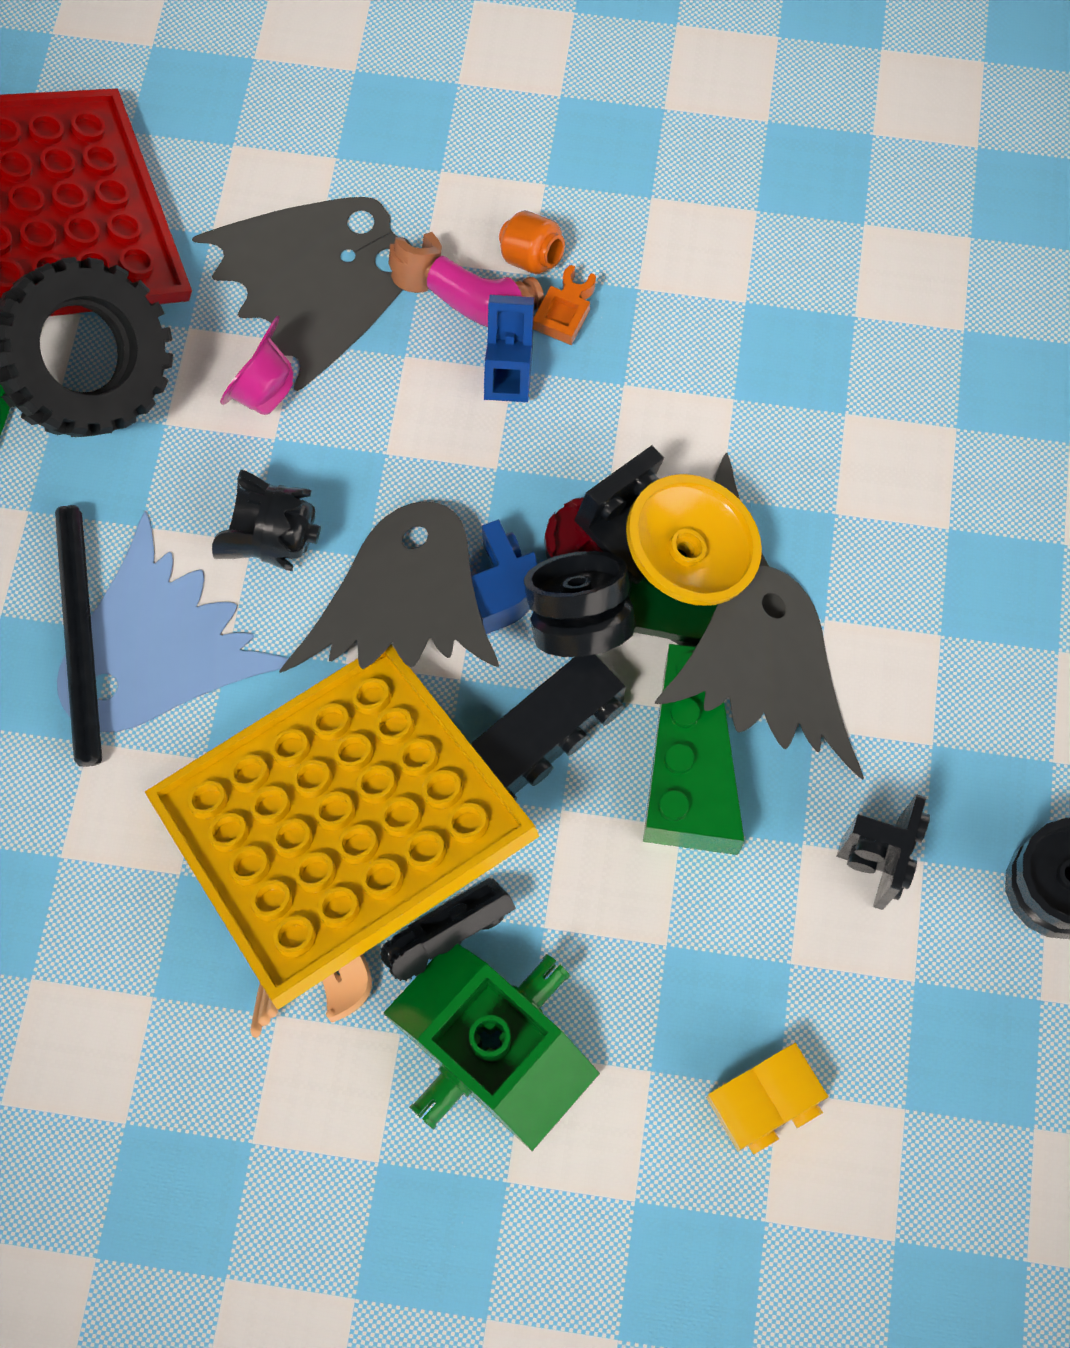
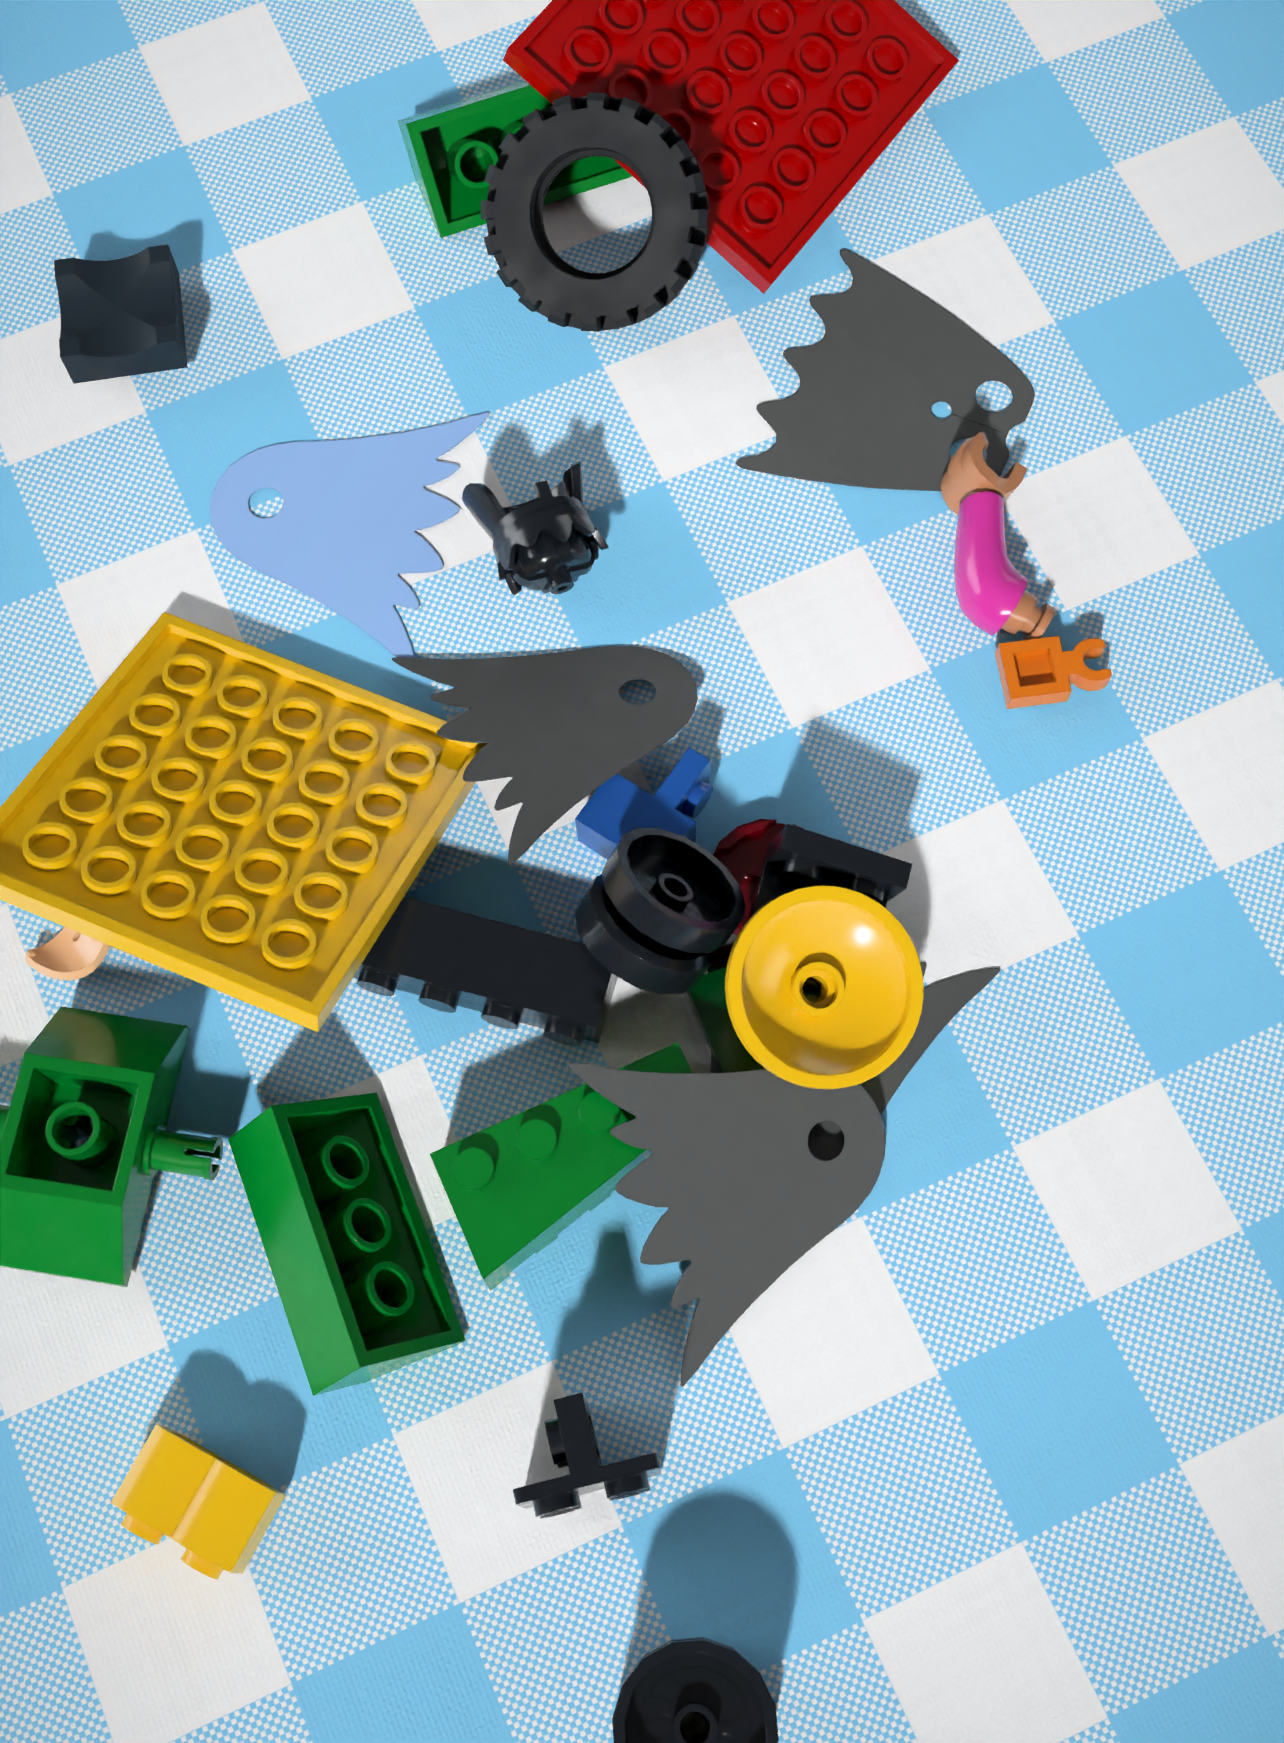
camera: 60 degrees right, 0 degrees up
(78, 637) = (299, 440): black axle -> none
(263, 379) = (718, 414): dark pink piece -> none
(444, 928) = (195, 1012): black hinge -> none
(509, 348) = (937, 647): blue brick -> none
(531, 242) = (1100, 581): orange head -> none
(658, 919) = (344, 1240): none -> green slope

